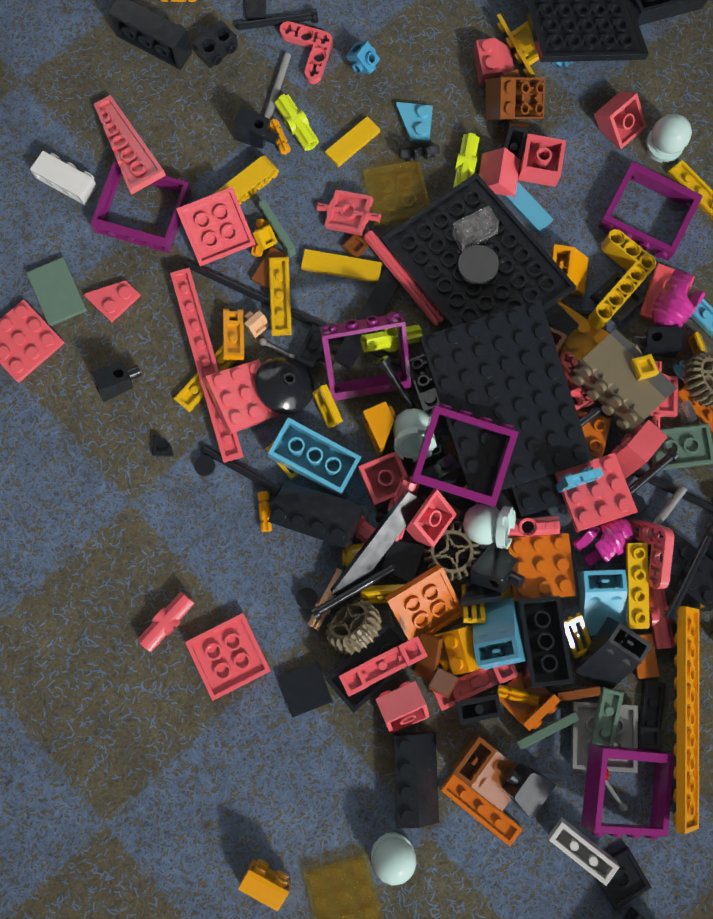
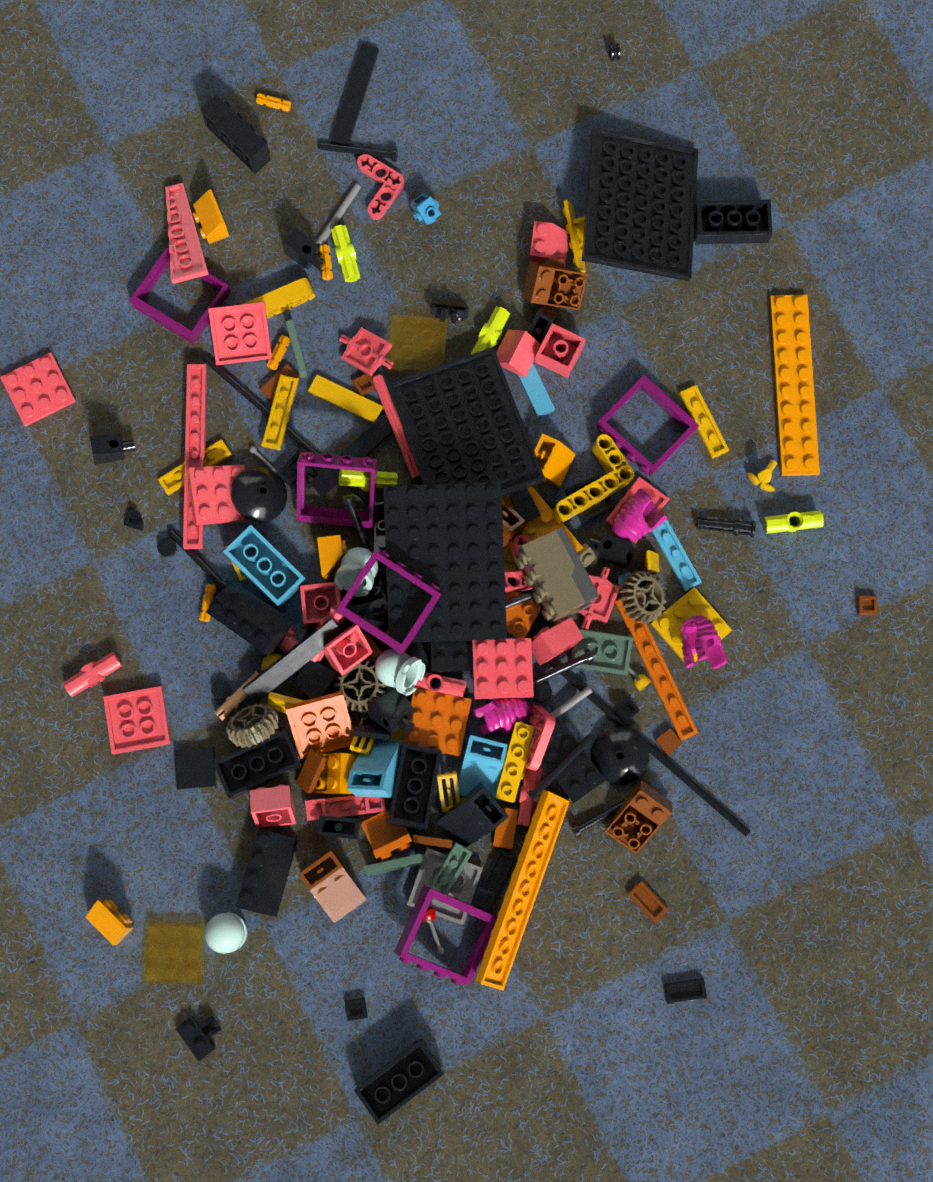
camera: 20 degrees right, 0 degrees up
(56, 291) = (82, 353): sand green tile -> none
(64, 177) = (119, 249): white brick -> none
(113, 299) = (130, 373): coral wing -> none
(149, 120) = (210, 218): none -> light orange slope
(213, 41) = (291, 156): black brick -> none
(233, 335) = (227, 436): light orange plate -> none
(256, 323) = (251, 431): light nougat tile -> none
(265, 237) = (283, 354): yellow tile -> none
(317, 611) = (224, 703): black bar -> none
(327, 406) = (291, 524): yellow tile -> none
(352, 141) = (392, 285): yellow tile -> none
(383, 666) = (264, 764): coral slope -> none
(416, 121) = (458, 281): medium azure wing -> none
(443, 683) = (315, 796): dark orange tile -> none
(475, 228) = (471, 400): clear brick -> none
(478, 264) = (463, 434): dark grey tile -> none
(481, 809) = (317, 917): orange tile -> none
(518, 695) = (379, 827): light orange axle -> none
(527, 788) = (360, 908): black torso -> none
(554, 896) = (356, 1009): none -> black tile
(571, 481) = (481, 651): medium azure wing -> none
(583, 851) = (391, 974): white brick -> none
(621, 118) = (650, 331): coral slope -> none
(627, 882) = (419, 1011): black tile -> none
(644, 367) = (574, 568): yellow tile -> none
(668, 138) = (687, 362): light aqua tile -> none
(686, 412) = (617, 621): clear tile -> none

